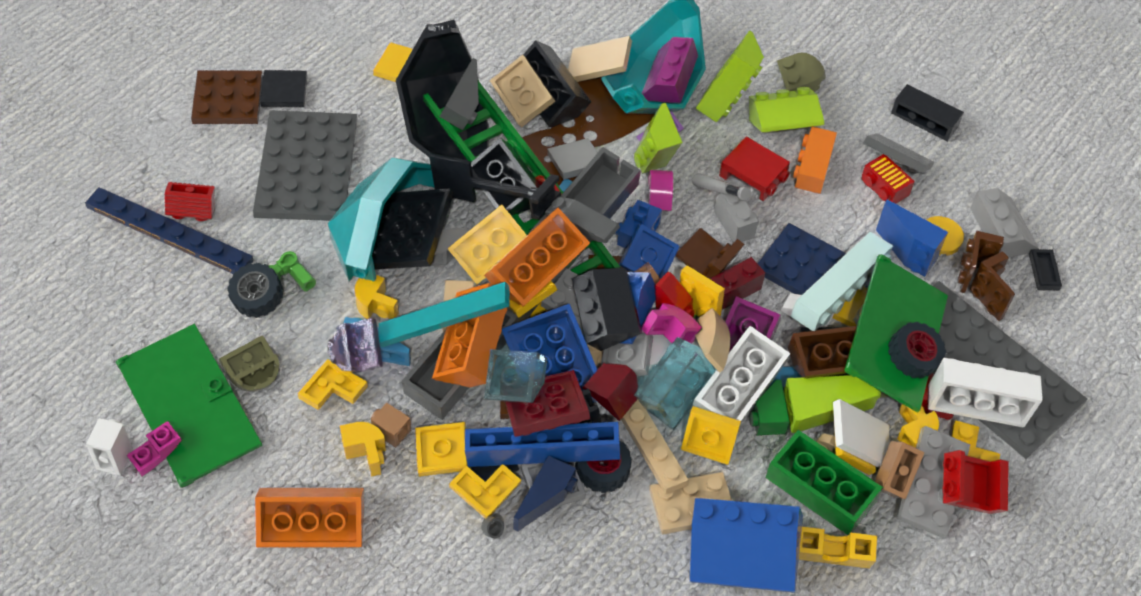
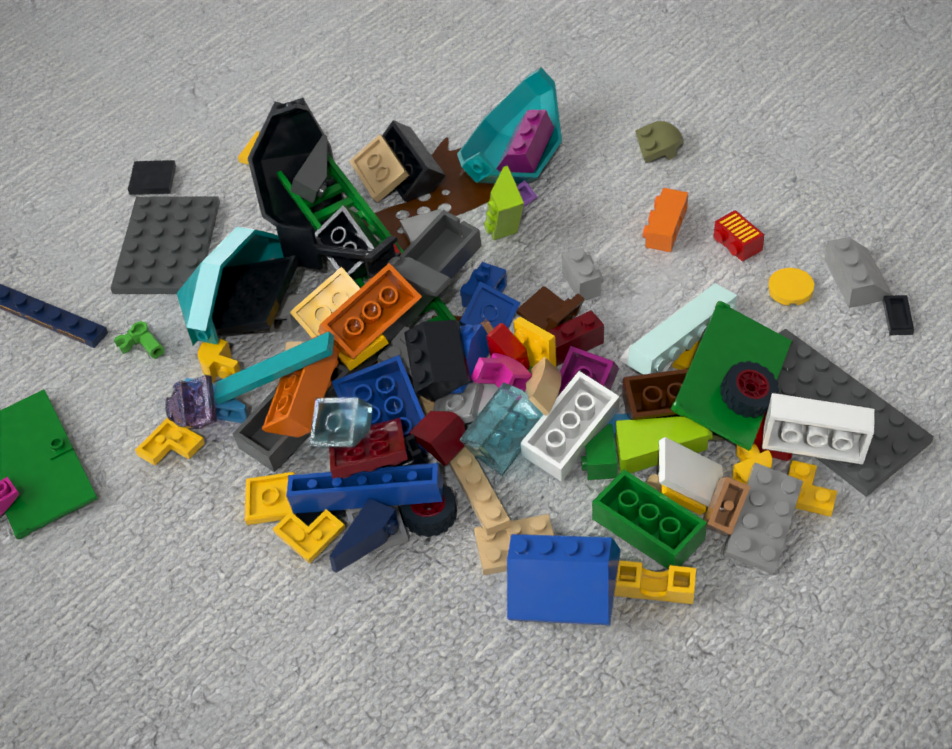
camera: 10 degrees right, 5 degrees down
(189, 201) = (50, 279): red brick -> none
(227, 97) = (97, 187): reddish brown plate -> none
(245, 283) = (104, 357): black wheel -> none
(251, 365) = (94, 425): olive slope -> none
(309, 517) = (135, 563): orange slope -> none
(362, 440) = (194, 491): yellow brick -> none
(392, 424) = (222, 476): medium nougat brick -> none
(492, 529) = (315, 573): dark grey hinge -> none
(600, 59) = (457, 136): tan tile -> none
(660, 189) = (506, 251): dark pink brick -> none
(710, 183) = (561, 245): light grey piece -> none
(710, 435) = (536, 477): yellow plate -> none
(732, 79) = (581, 145): lime slope -> none
(756, 167) = (605, 228): red panel -> none
(785, 110) = (637, 173): lime slope -> none
(798, 259) = (639, 311): dark blue plate -> none
(899, 152) = (751, 209): dark grey tile -> none
(913, 238) = (757, 287): blue slope -> none
(927, 112) = (784, 171): black brick -> none
(975, 483) = (804, 517): red panel -> none
(978, 249) = (829, 301): reddish brown bracket -> none
(991, 288) = (835, 329): reddish brown bracket -> none

